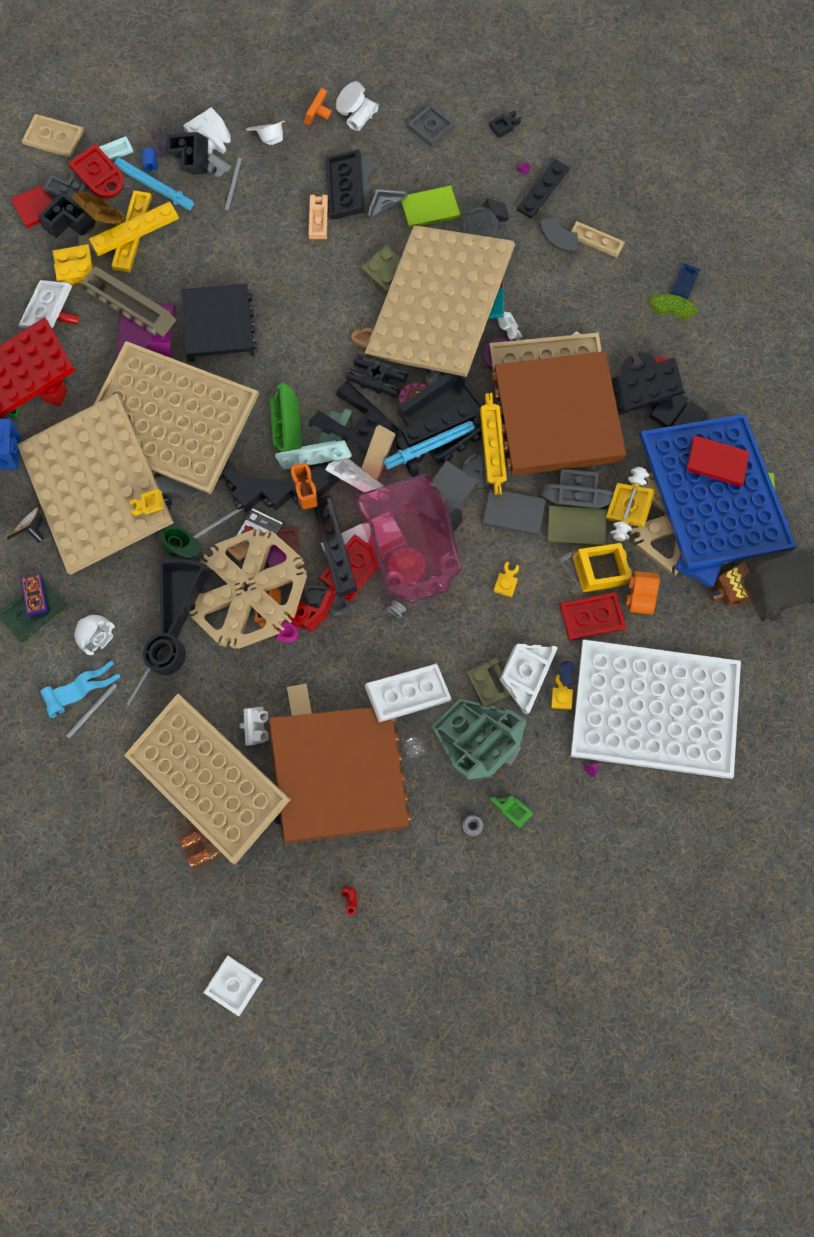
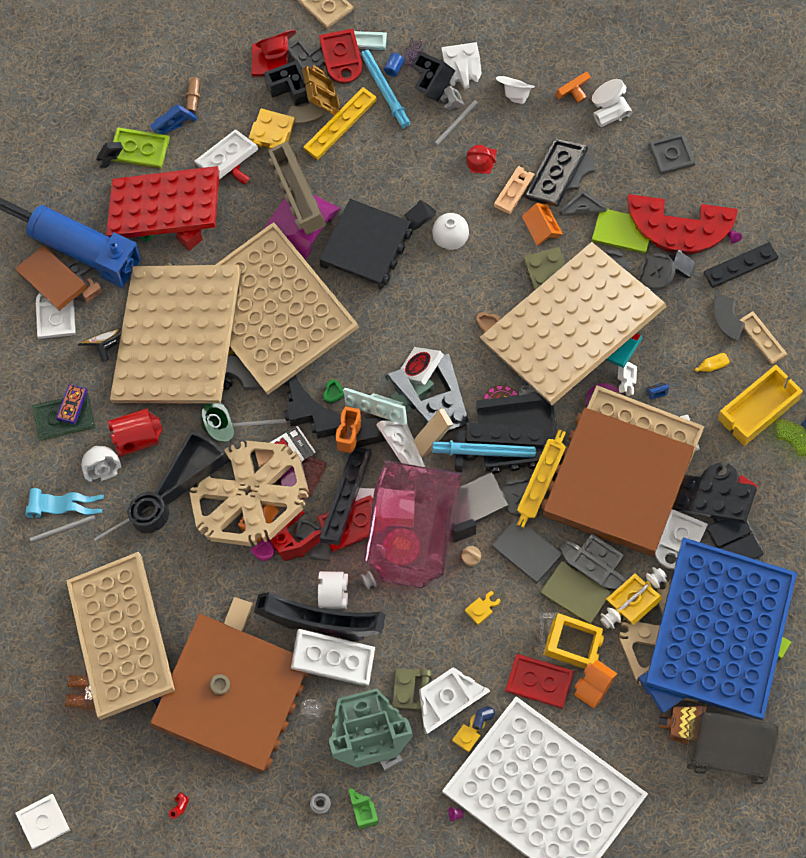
camera: 35 degrees right, 5 degrees down
(34, 189) = (275, 46): none -> red piece
(109, 588) = (135, 432): none -> red cylinder
(133, 228) = (341, 122): yellow plate -> none
(149, 503) = (207, 376): yellow plate -> none
(249, 274) = (420, 214): none -> black tile
(254, 725) = (186, 614): white hips -> none
(266, 463) = (333, 392): none -> green tile
(273, 204) = (481, 159): none -> red piece
(284, 276) = (450, 231): none -> white cylinder
(285, 419) = (373, 362): bright green brick -> none
(326, 771) = (219, 684): none -> dark tan tile
(330, 399) = (421, 364): none -> tile
(358, 233) = (541, 223): none -> orange panel
(373, 635) = (331, 590): none -> white brick
(376, 375) = (477, 363): black pin -> none
(378, 666) = (318, 620): none -> black arch
(470, 541) = (471, 556): none -> tan tile
(477, 186) = (680, 233): none -> red plate
(503, 124) = (739, 185): black plate -> none
(540, 323) = (657, 390): none -> blue slope
(571, 278) = (713, 363): none -> yellow piece
(631, 293) = (759, 405): none -> yellow piece
(631, 426) = (677, 527): none -> white tile
(717, 461) = (738, 601): red tile -> none

